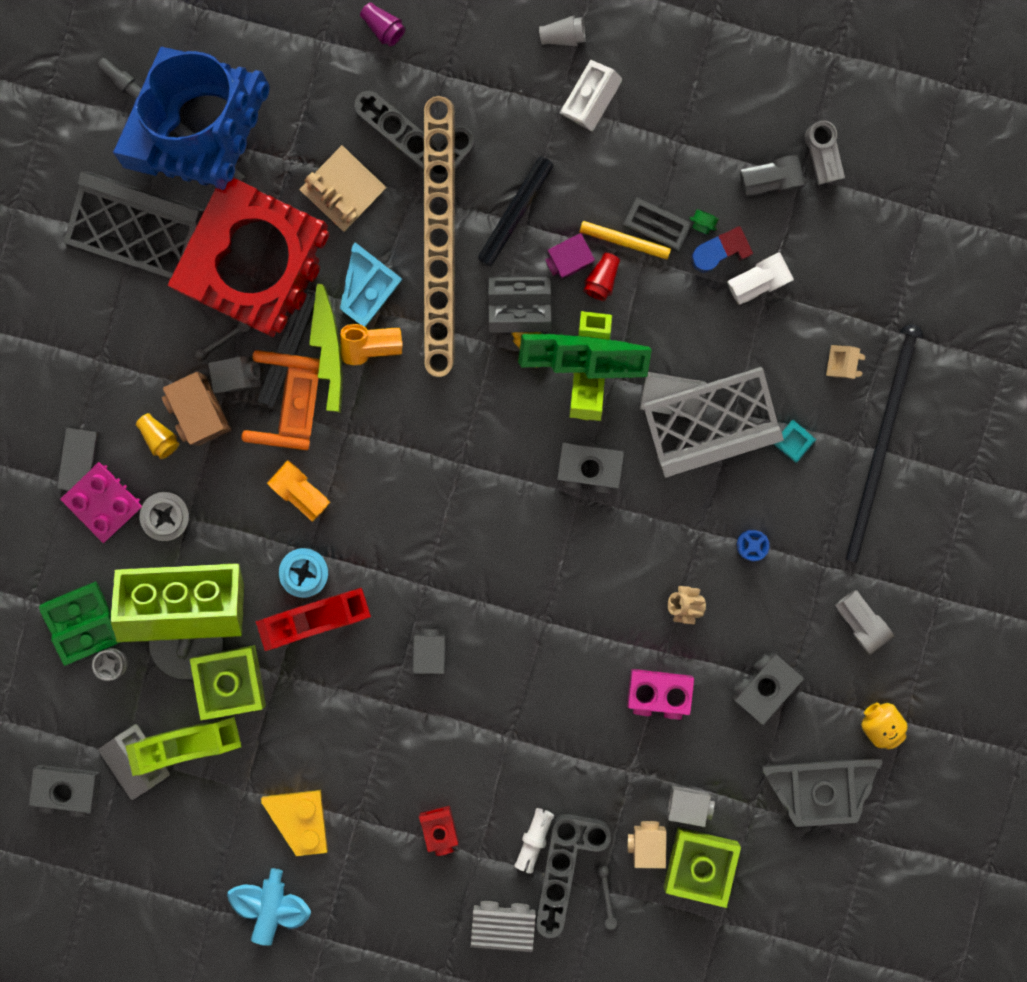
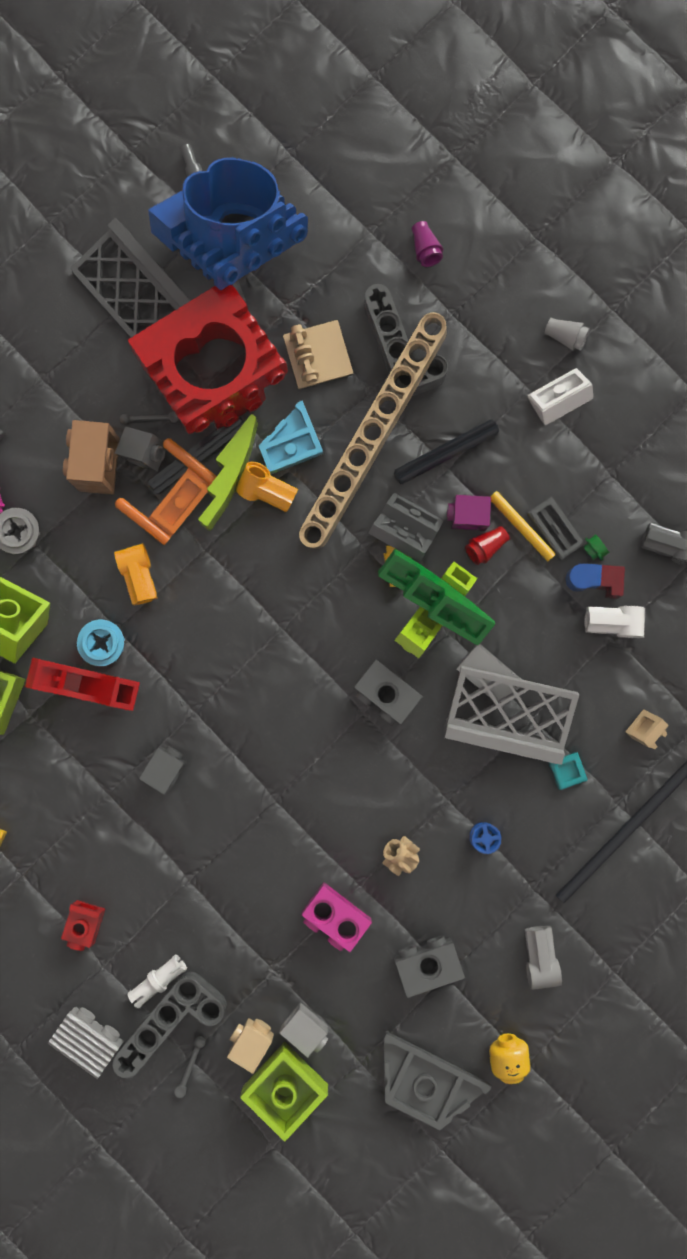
camera: 25 degrees right, 5 degrees down
(158, 438) = (49, 463): yellow cone -> none

